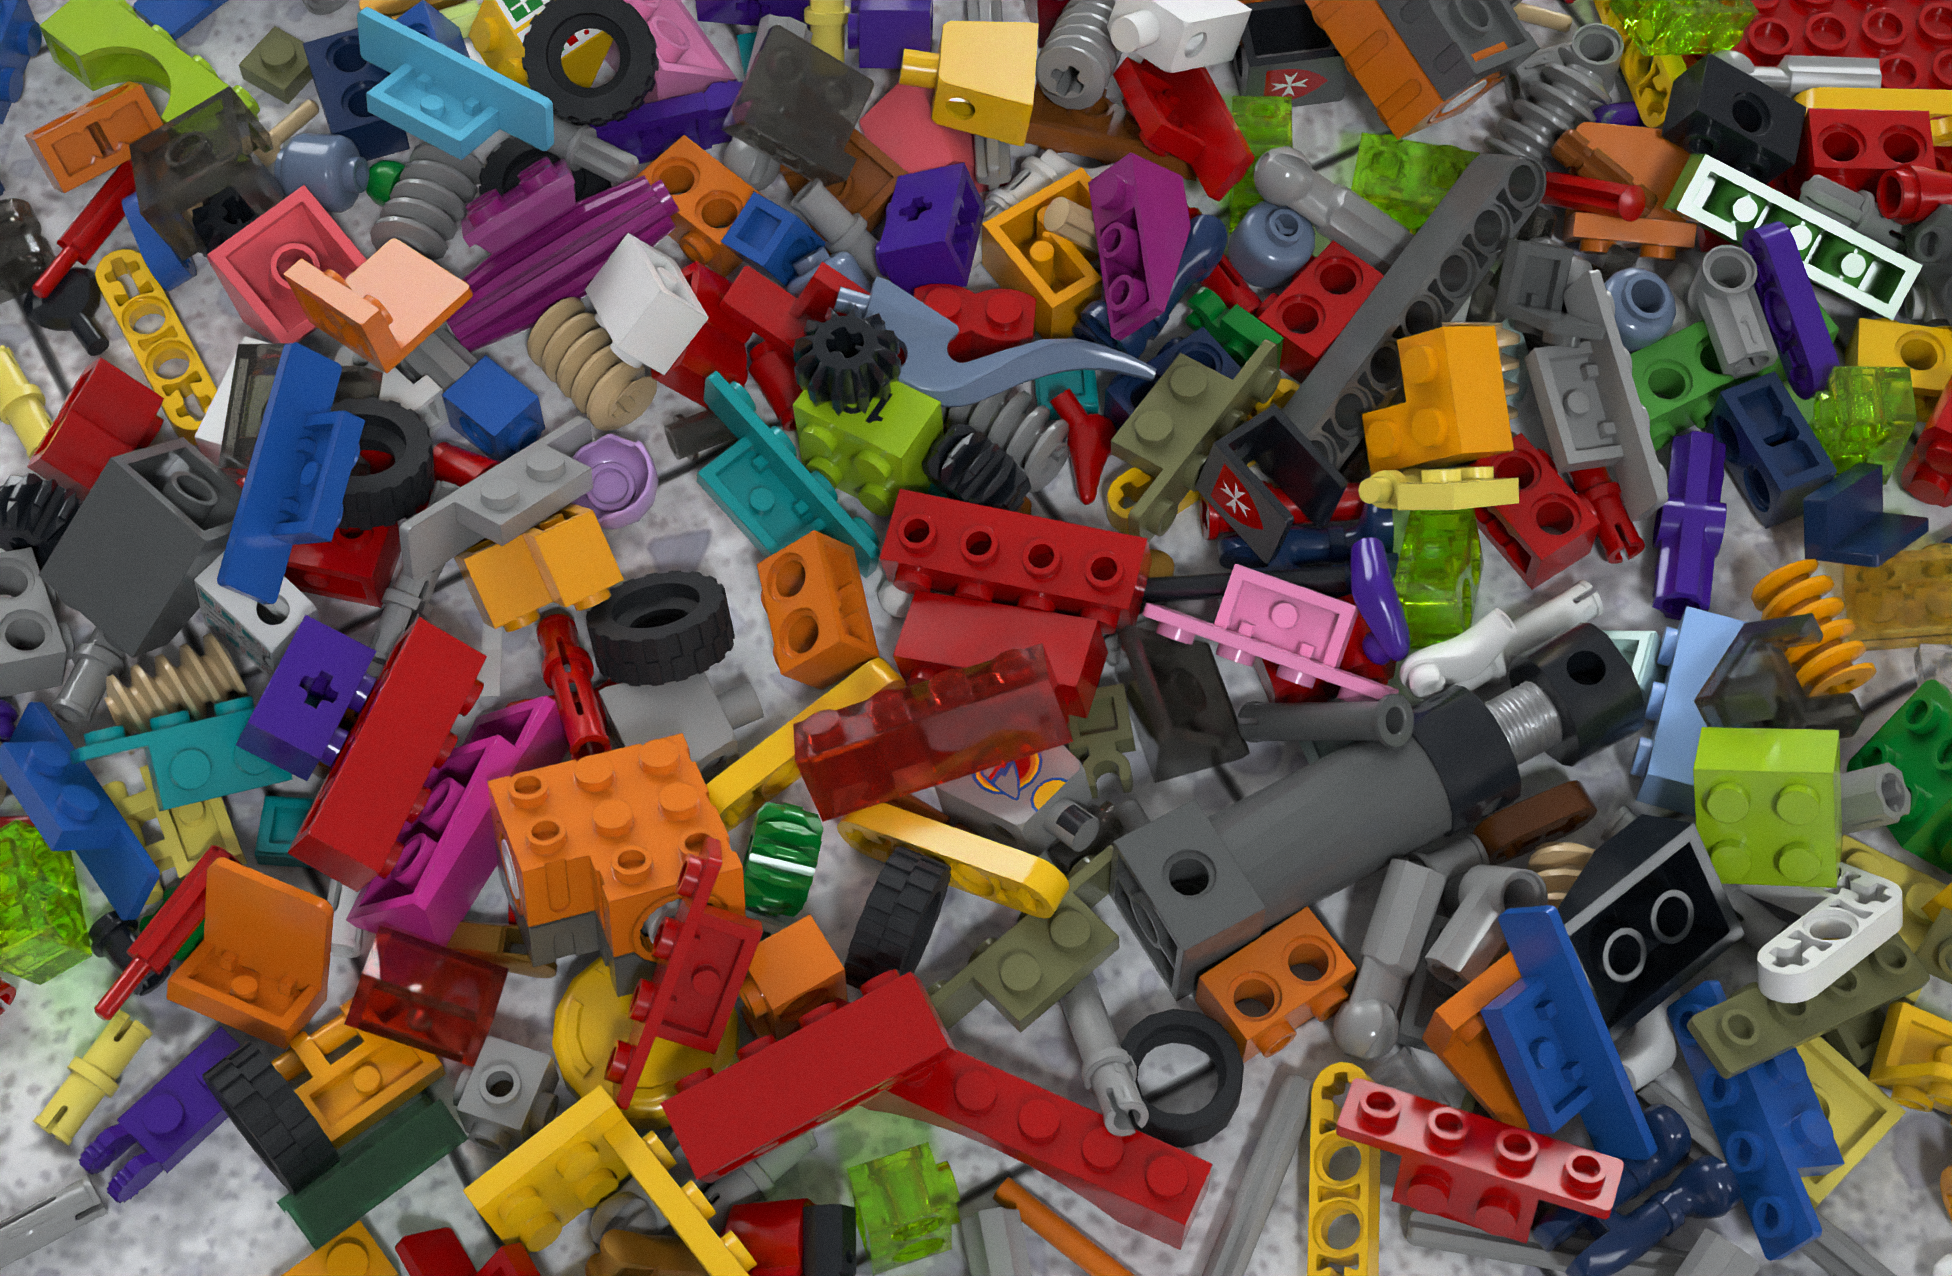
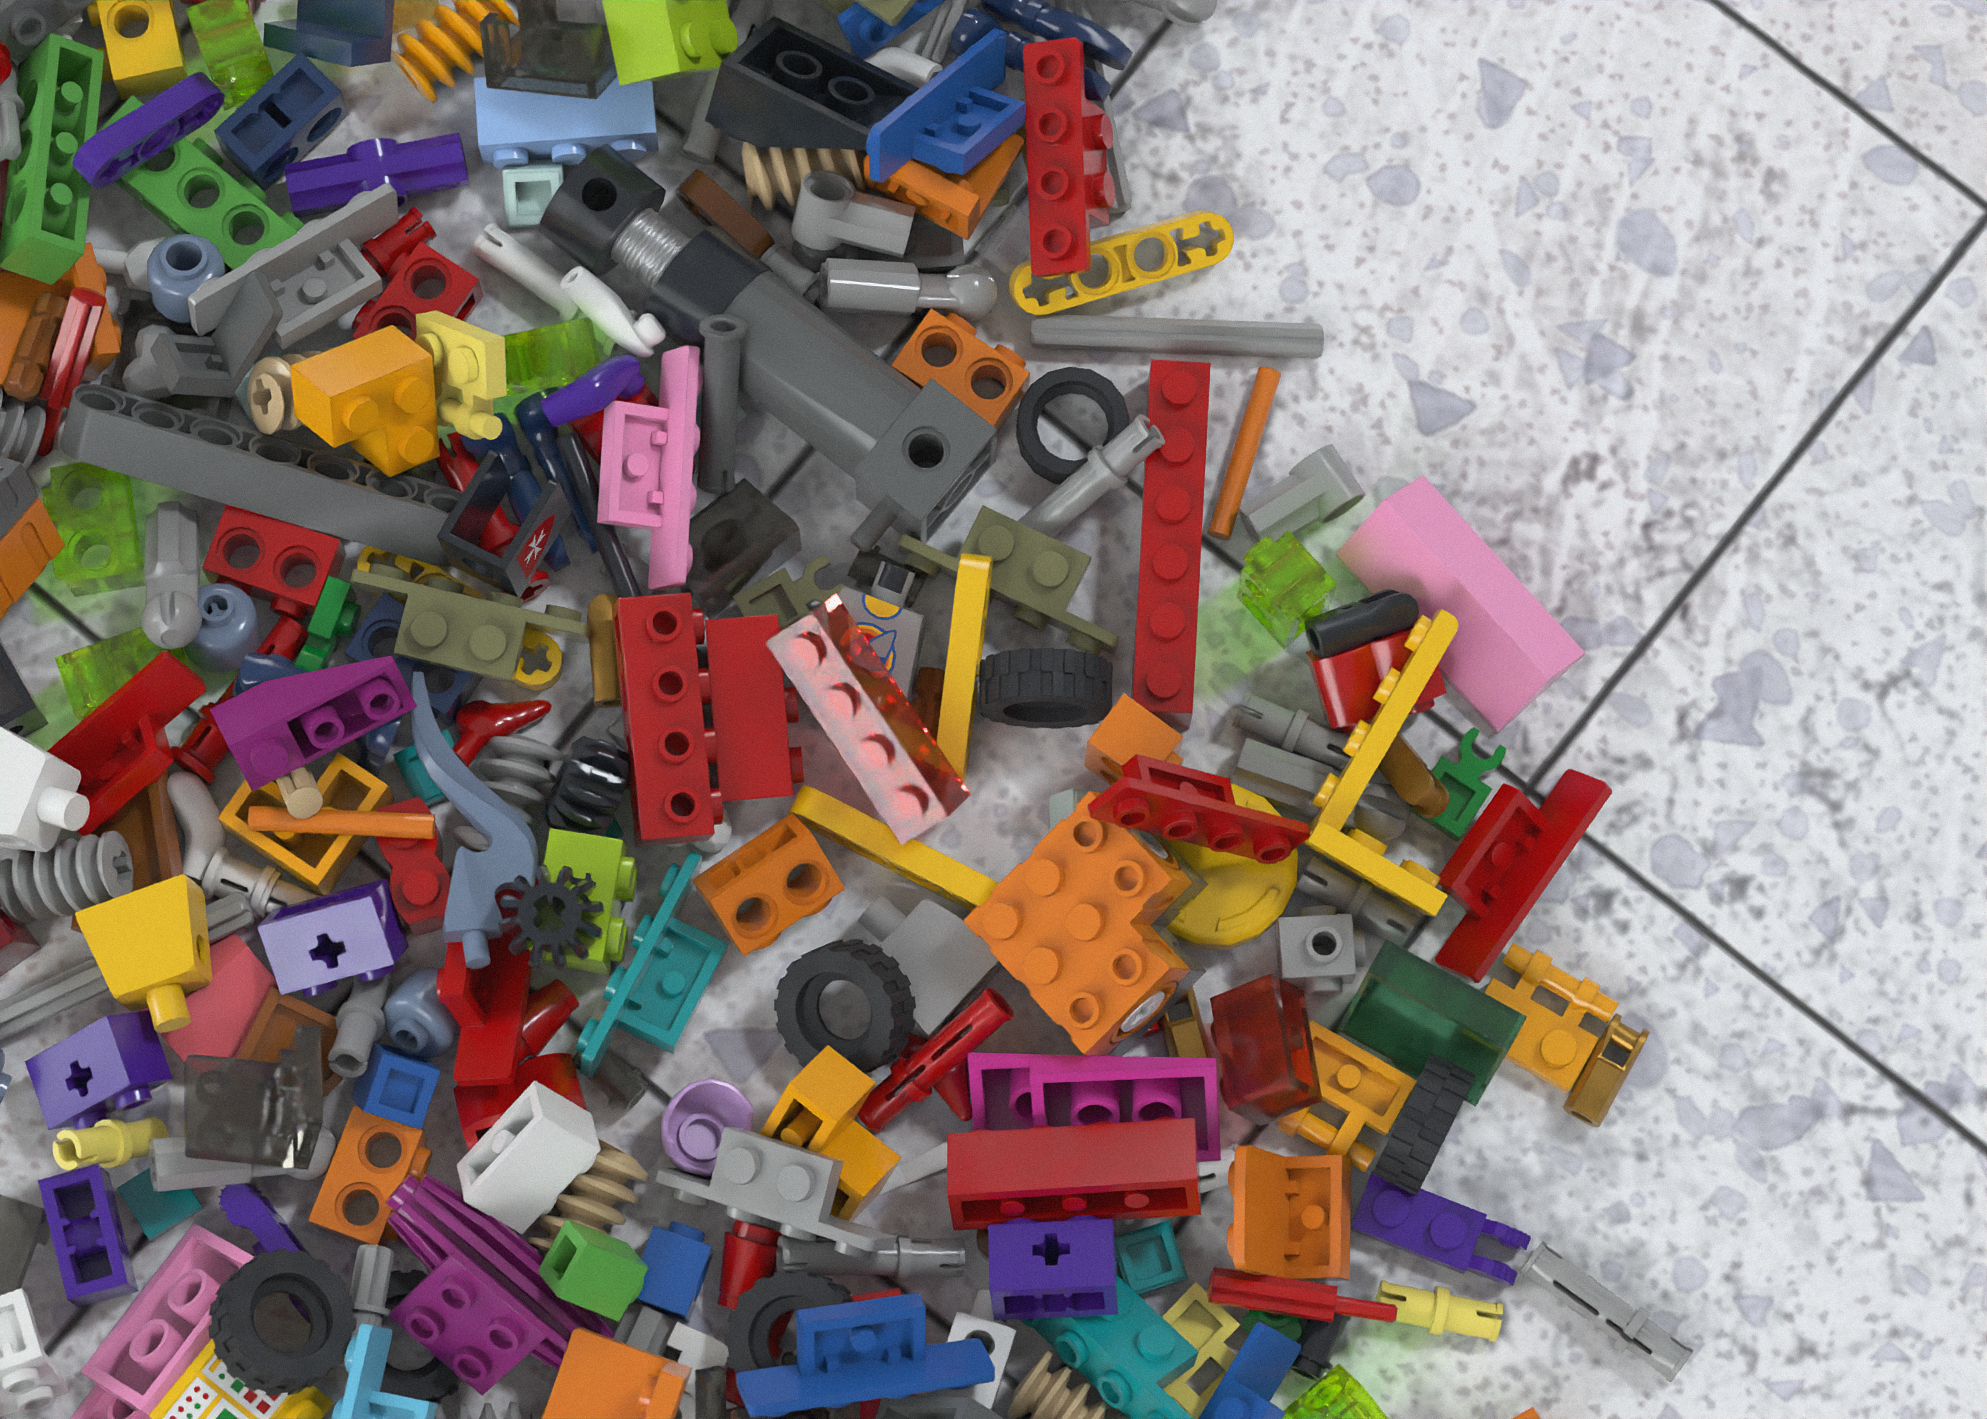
camera: 115 degrees left, 15 degrees up
(514, 319) = (593, 1270): none -> bright green brick
(781, 858) = (1017, 812): green gear -> none
(808, 1076) = (1226, 685): red brick -> none
(1025, 262) = (344, 822): none -> orange bar
(1732, 313) = (172, 180): light grey piece -> none

